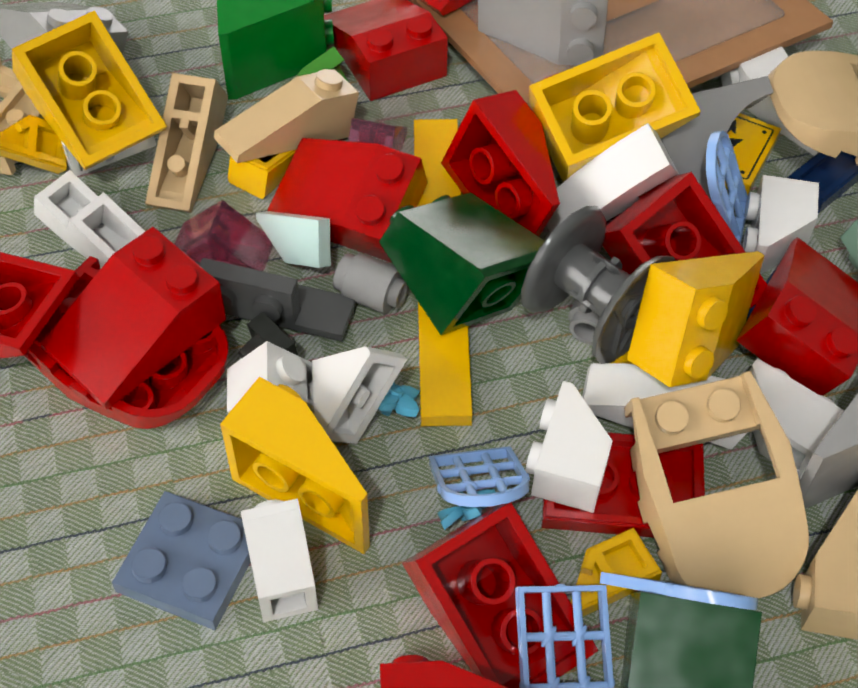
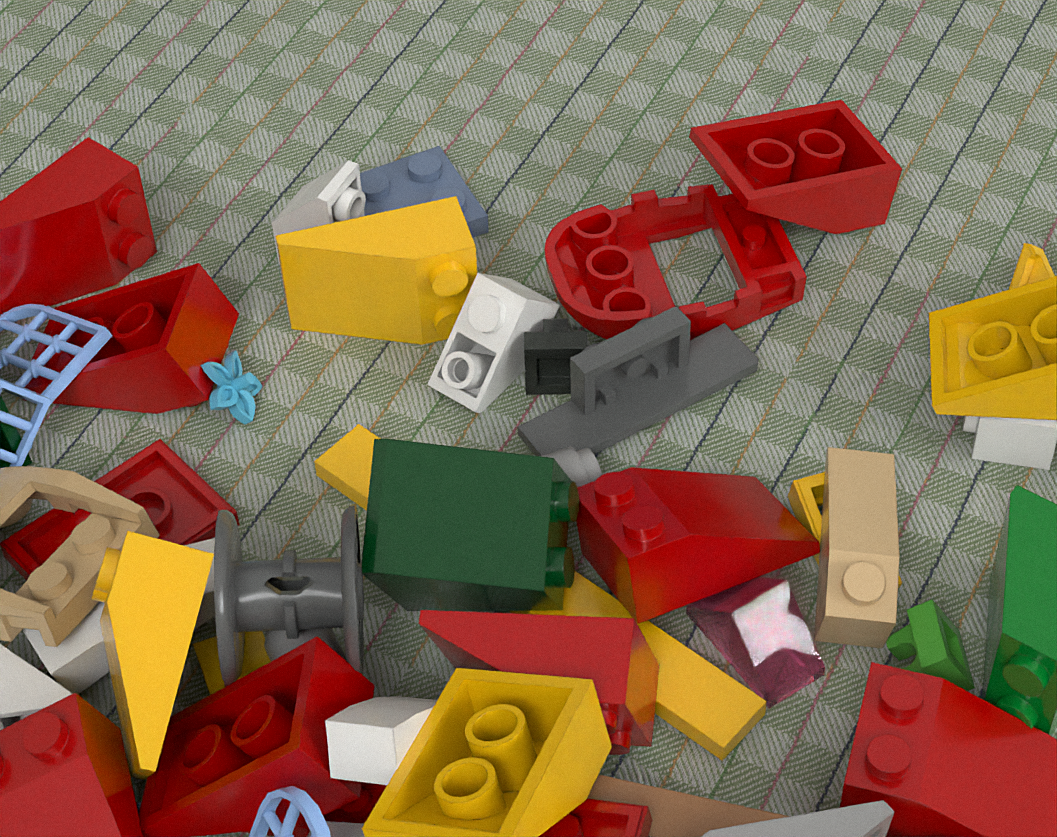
camera: 135 degrees right, 5 degrees down
(84, 220) = (849, 321): white slope -> none
(135, 317) = (671, 252): red slope -> none
(186, 147) = (941, 462): tan slope -> none
(225, 237) = (738, 410): clear pink slope -> none
(298, 237) = (683, 457): light aqua tile -> none
(351, 389) = (437, 362): white slope -> none
(402, 400) = (405, 418): medium azure plant -> none
(450, 492) = (259, 397): light blue window -> none
(573, 453) = (173, 470): white slope -> none
(618, 555) = (65, 443): yellow tile -> none

